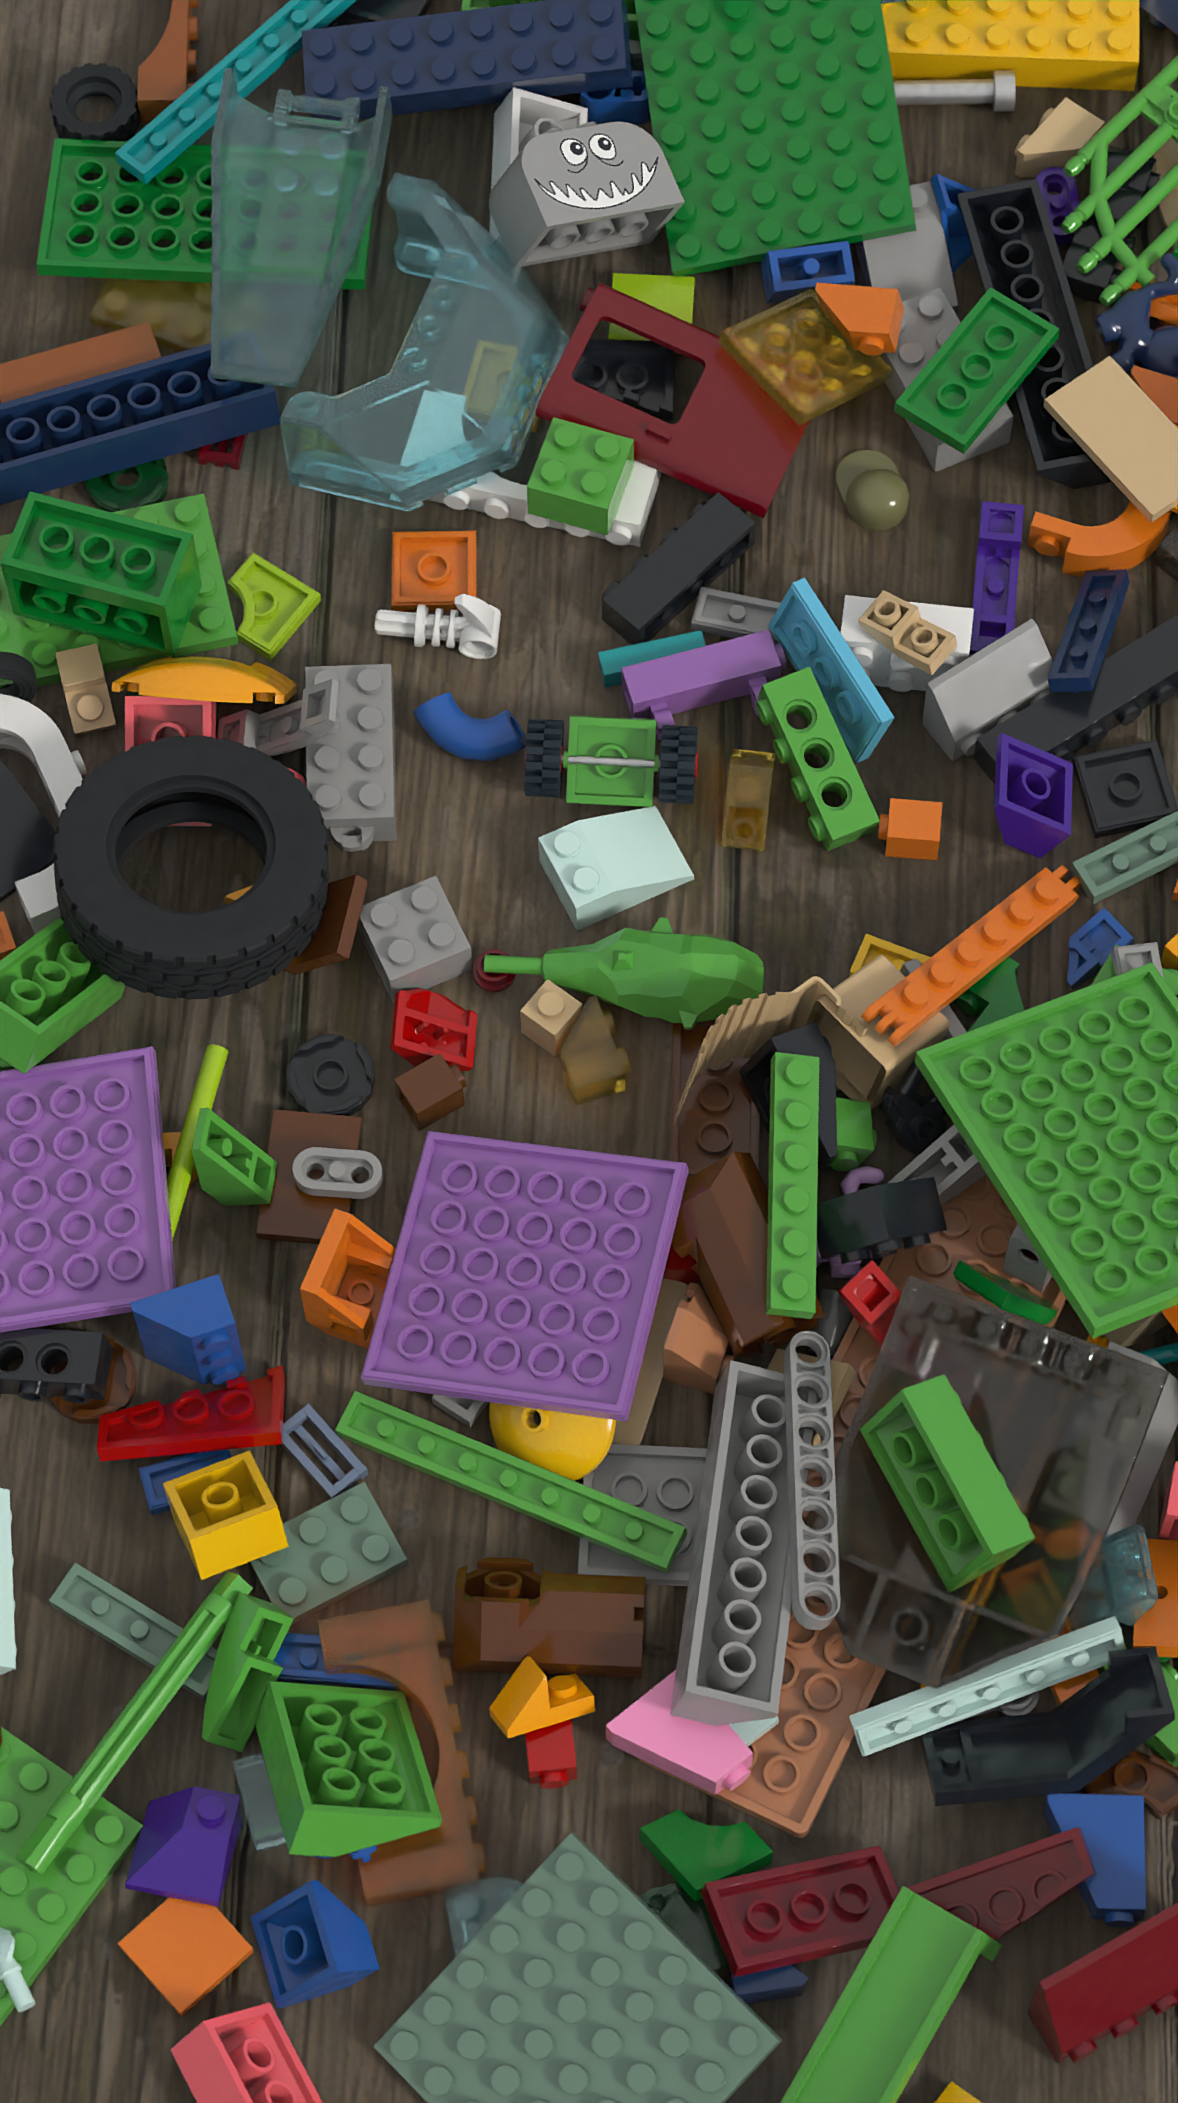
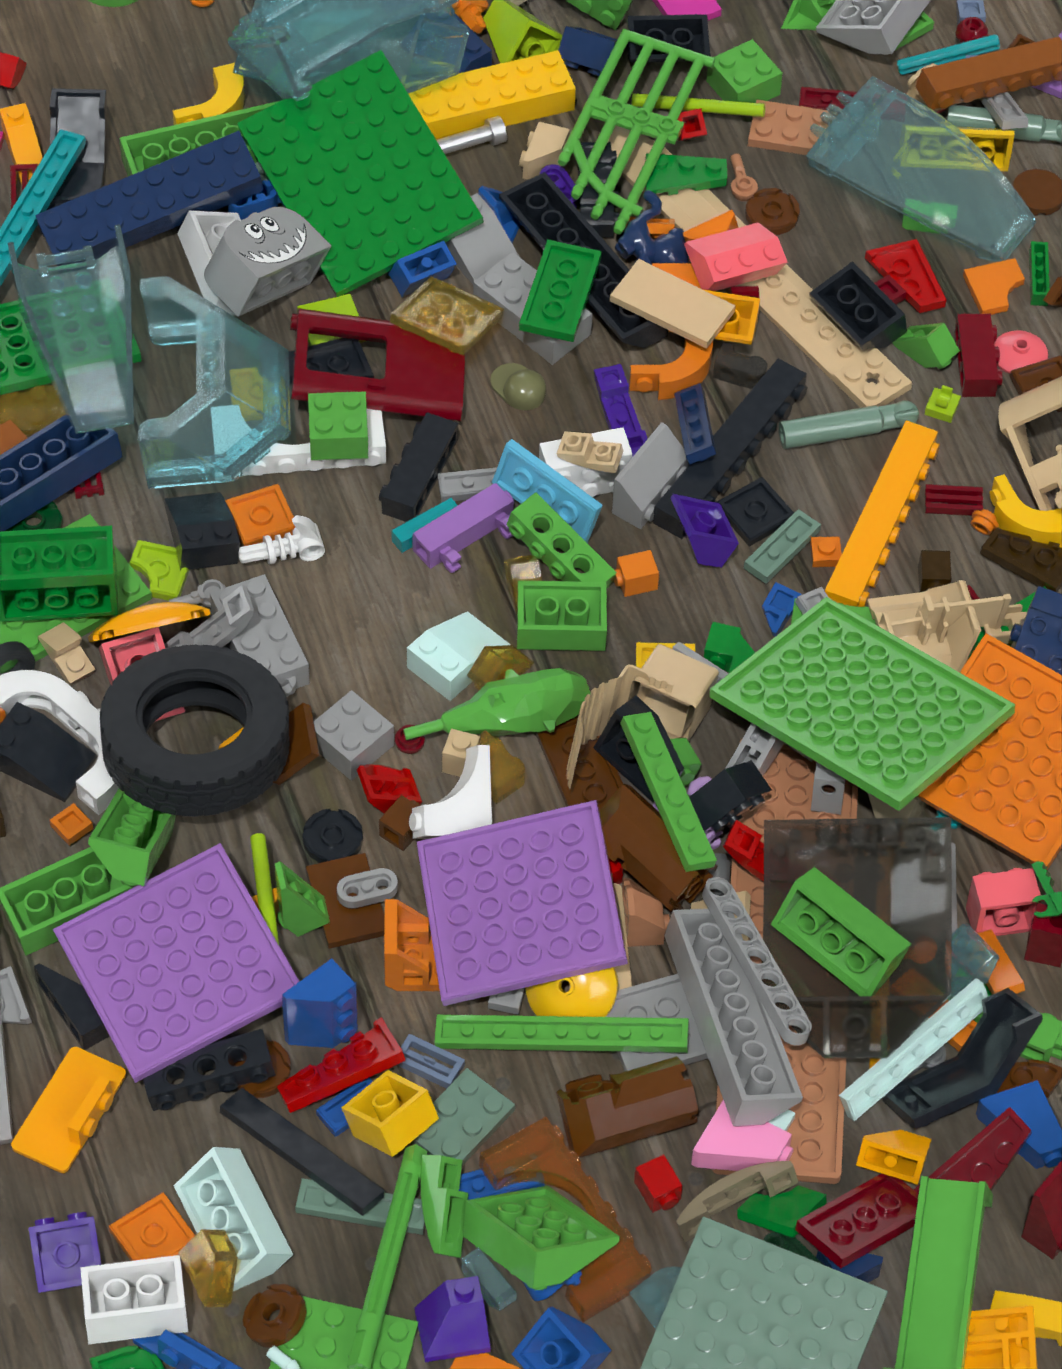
camera: 25 degrees left, 10 degrees down
(91, 1525) = (302, 1151): none -> black tile
(295, 663) = (202, 595): none -> light grey plate
(342, 566) = (202, 530): none -> black slope
(469, 736) = (331, 605): blue cylinder -> none
(513, 1104) = (464, 807): none -> white arch
(533, 1703) = (641, 1151): light orange slope -> none
(610, 761) = (430, 590): plate -> none
(640, 1797) = (733, 1188): none -> dark tan slope
(661, 896) = (494, 662): none -> clear yellow slope
(775, 859) = (561, 615): none -> bright green slope
(864, 315) = (473, 279): orange slope -> none
(895, 1830) = (895, 1154): none -> light orange slope
(911, 1117) = (715, 739): black piece -> none
(973, 954) = (712, 628): orange hinge -> none
(1005, 1293) = (795, 813): green tile -> none

